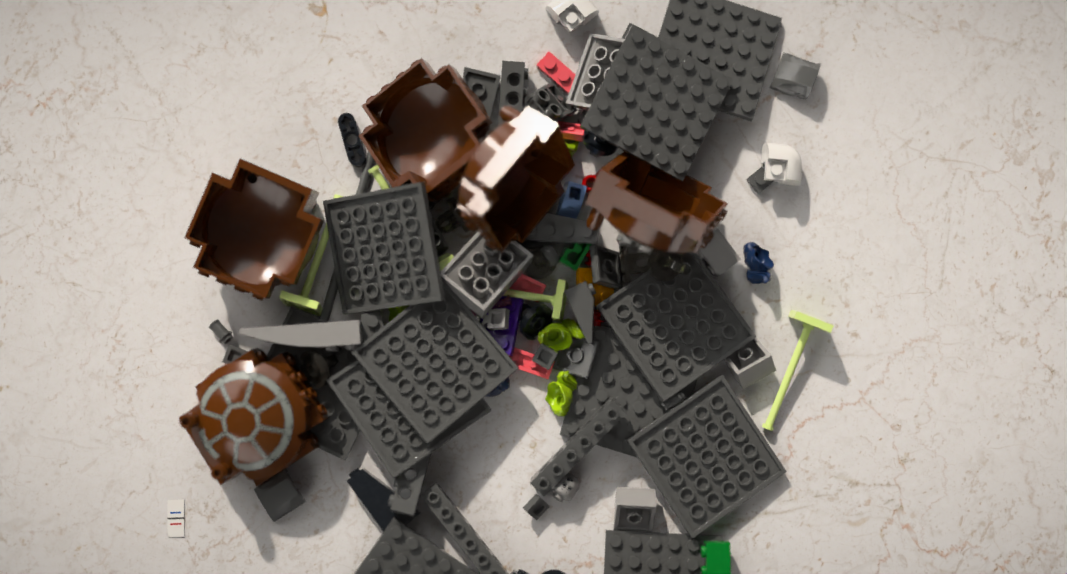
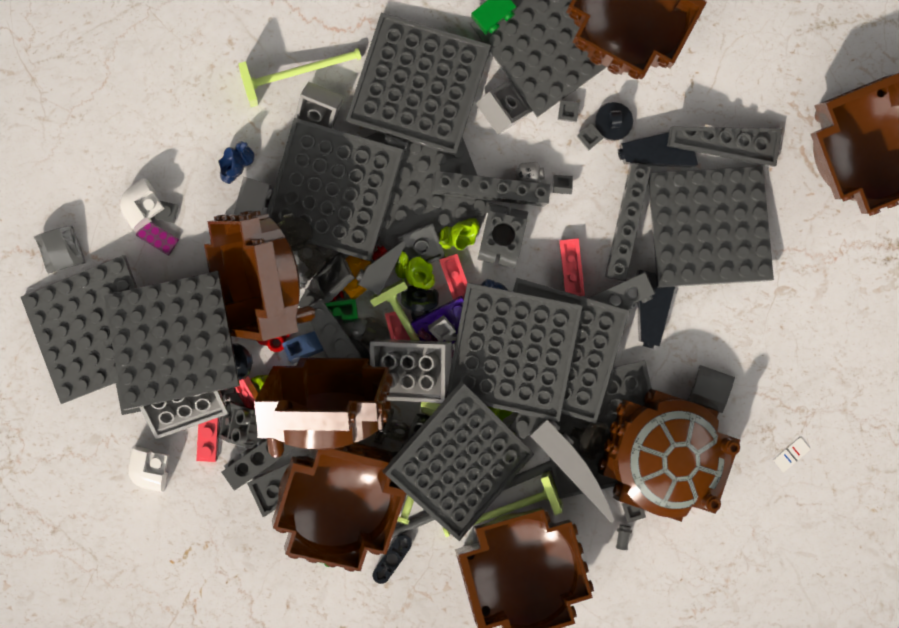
camera: 125 degrees left, 5 degrees up
(464, 461) = (572, 266): none -> coral plate
(545, 356) = (441, 269): dark grey plate -> none
(552, 432) = (489, 248): none -> dark grey piece
(556, 559) = (590, 136): none -> dark grey plate
(590, 559) = (568, 111): none -> dark grey plate
(605, 235) = (308, 298): none -> dark grey plate
(744, 157) = (158, 238): none -> magenta tile

